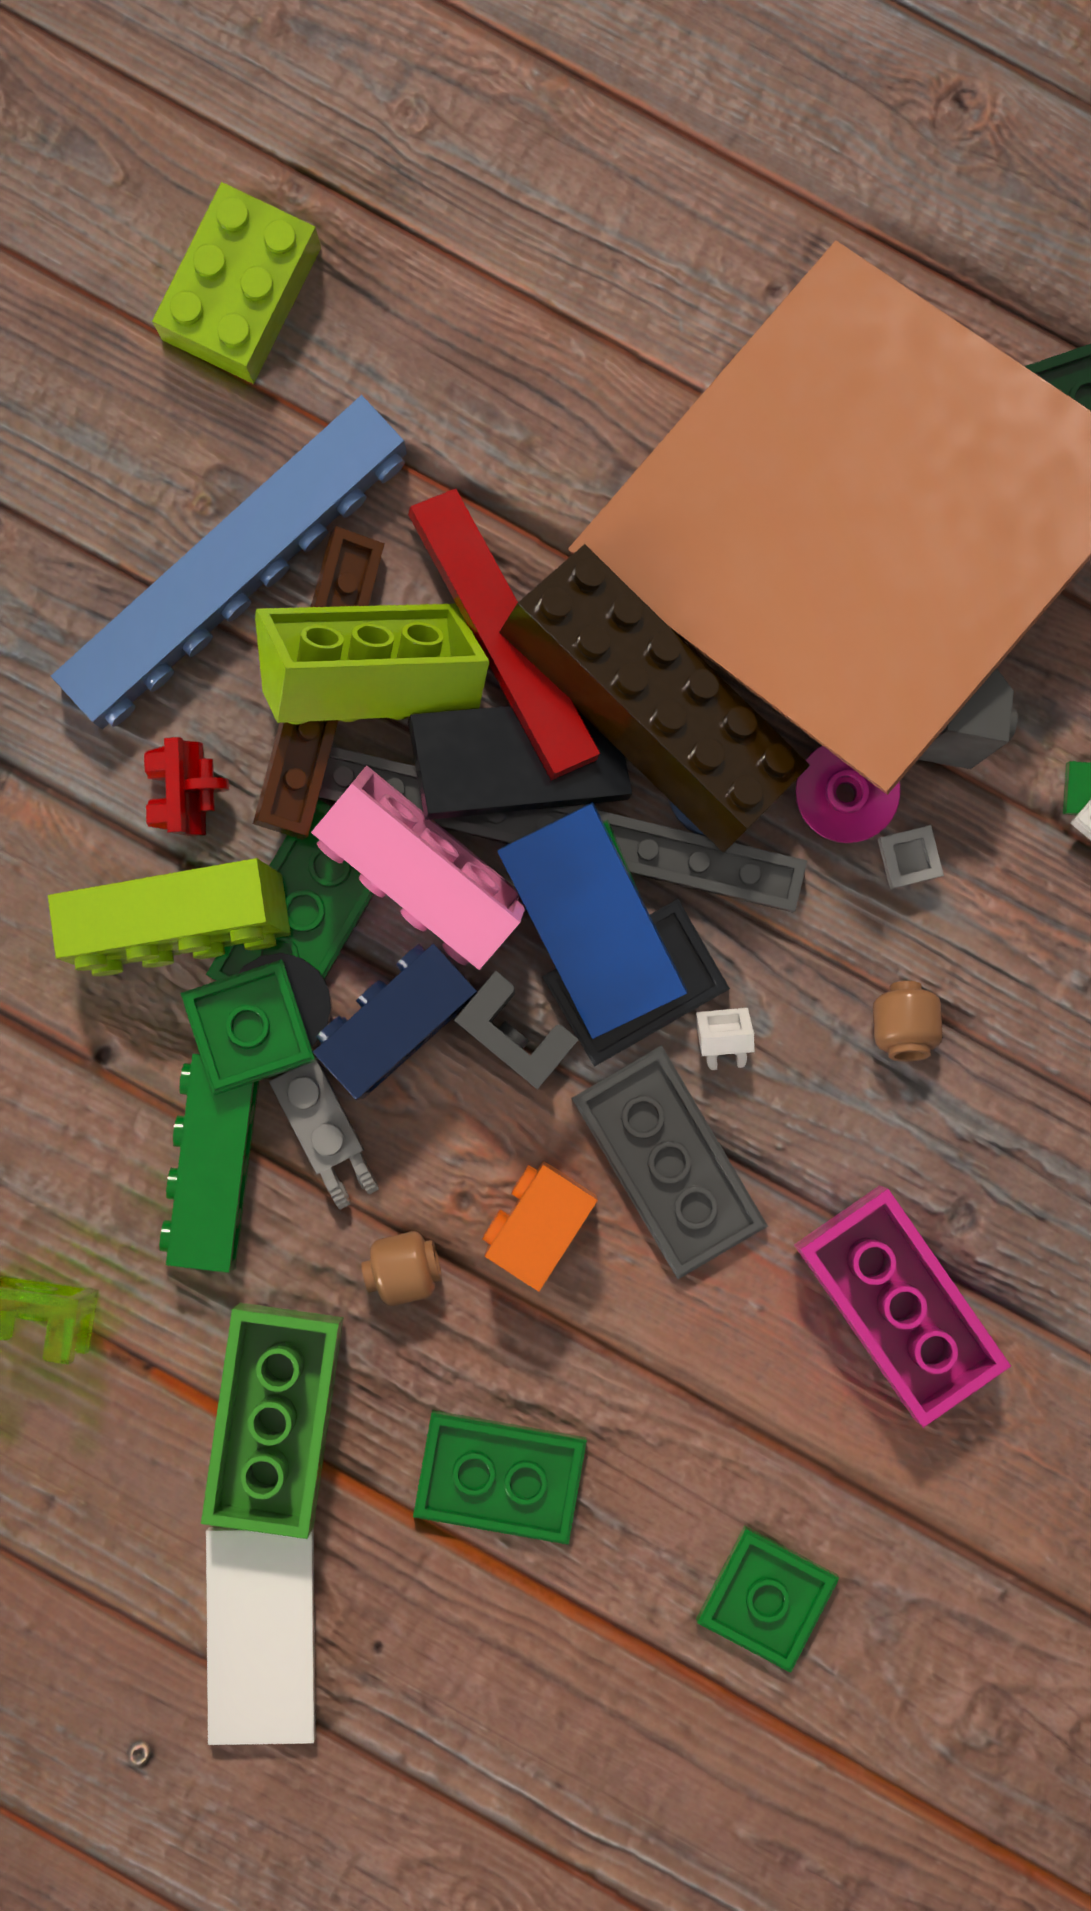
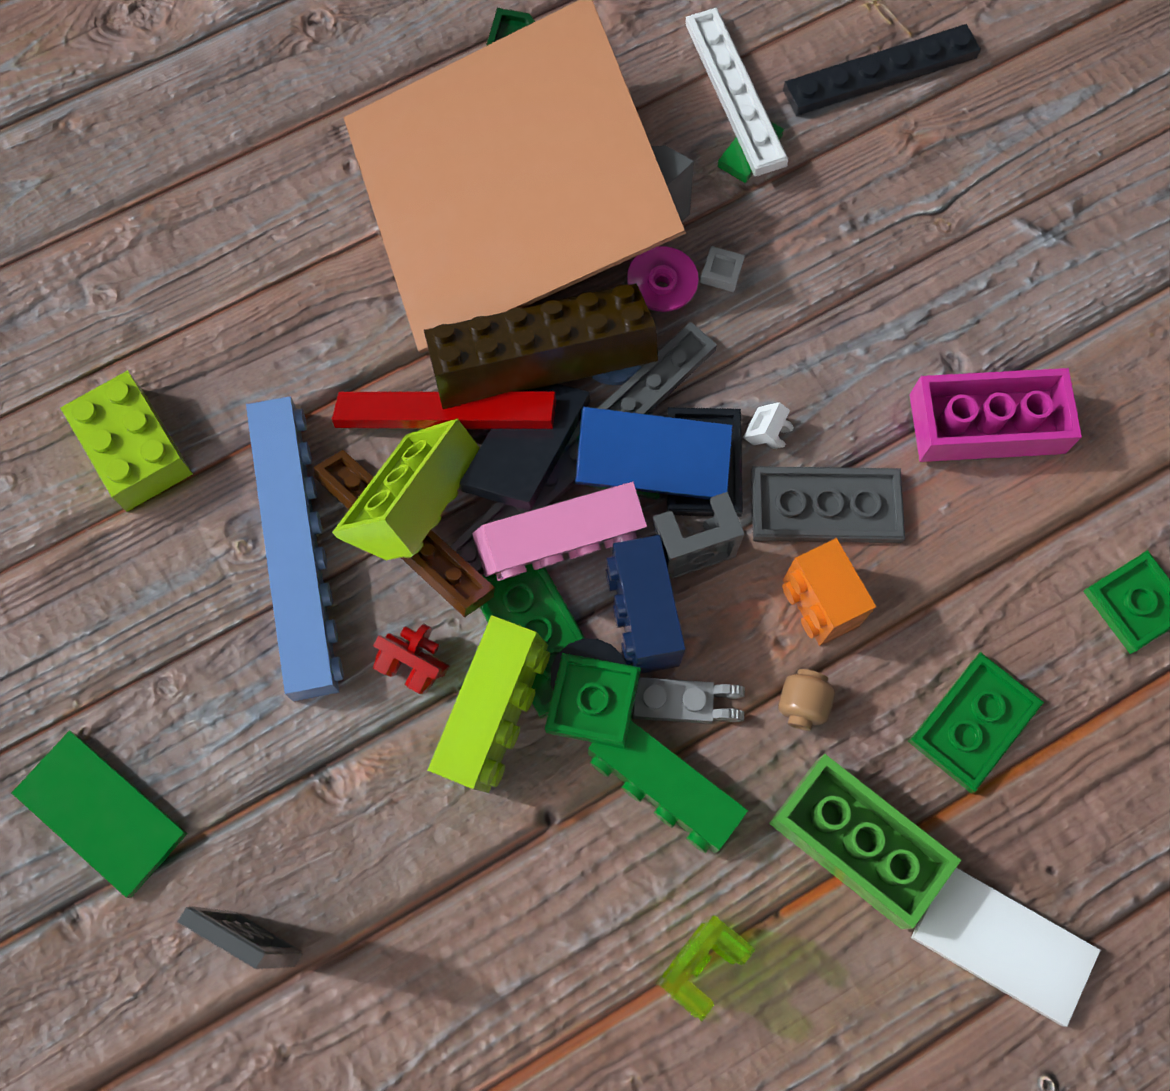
camera: 60 degrees left, 15 degrees down
(907, 1021) = (820, 321): medium nougat head -> none

